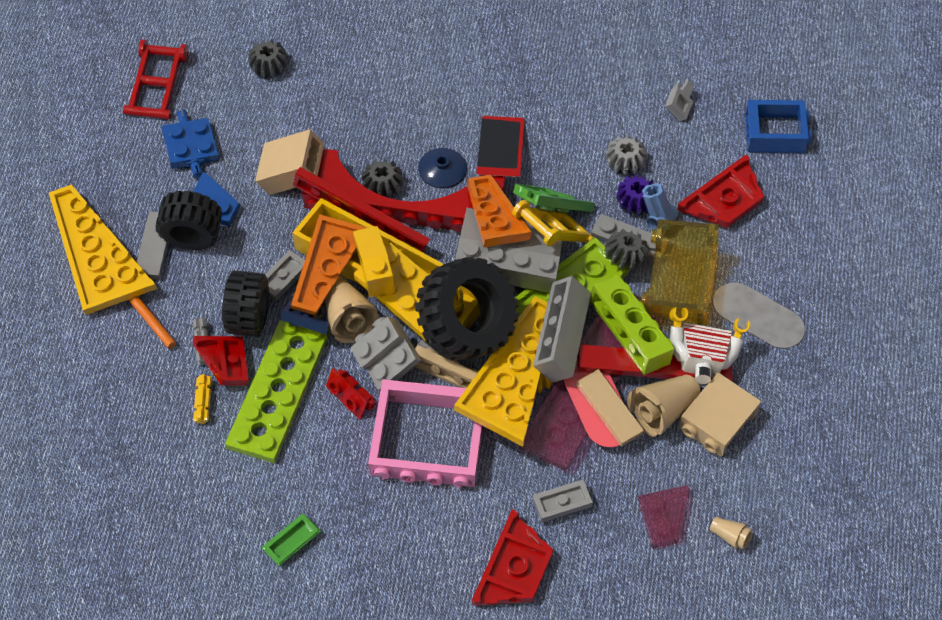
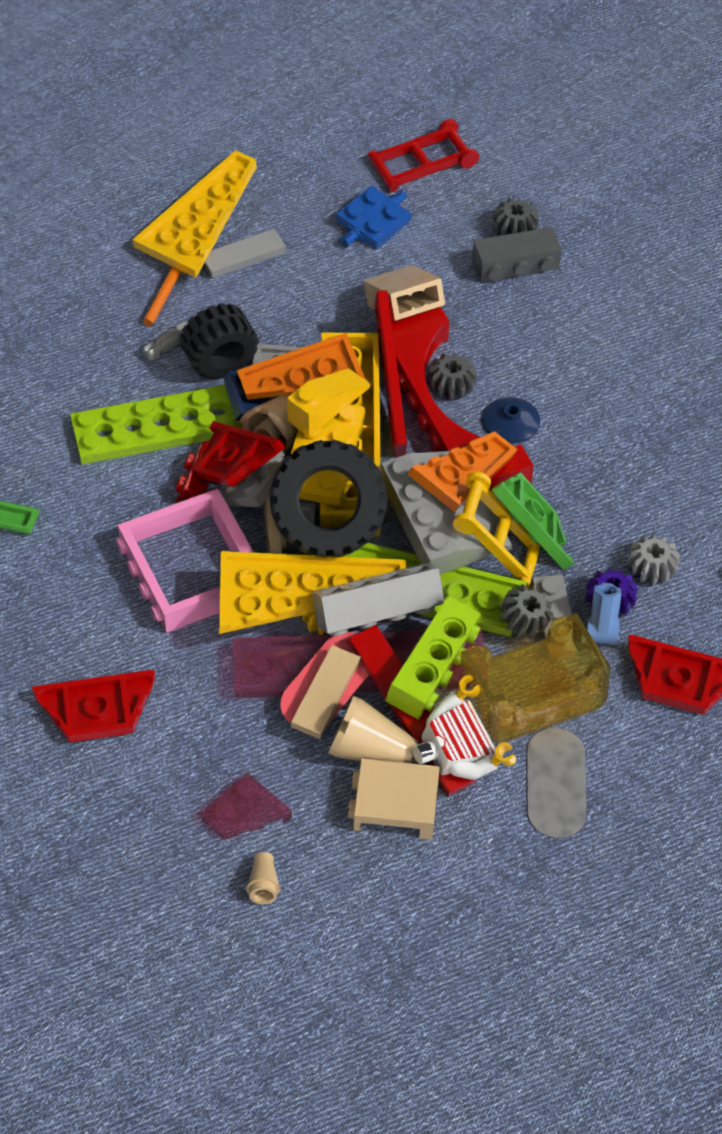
camera: 55 degrees right, 5 degrees down
(188, 220) = (276, 253): black tyre -> none
(202, 399) = (107, 373): yellow axle -> none
(212, 189) = (323, 268): blue wing -> none
(224, 358) = (158, 364): red wing -> none
(301, 77) = (516, 254): none -> dark grey brick
(368, 349) = (234, 454): none -> red wing
(500, 146) = (571, 448): black sticker -> none
(562, 501) = (195, 709): light grey plate -> none

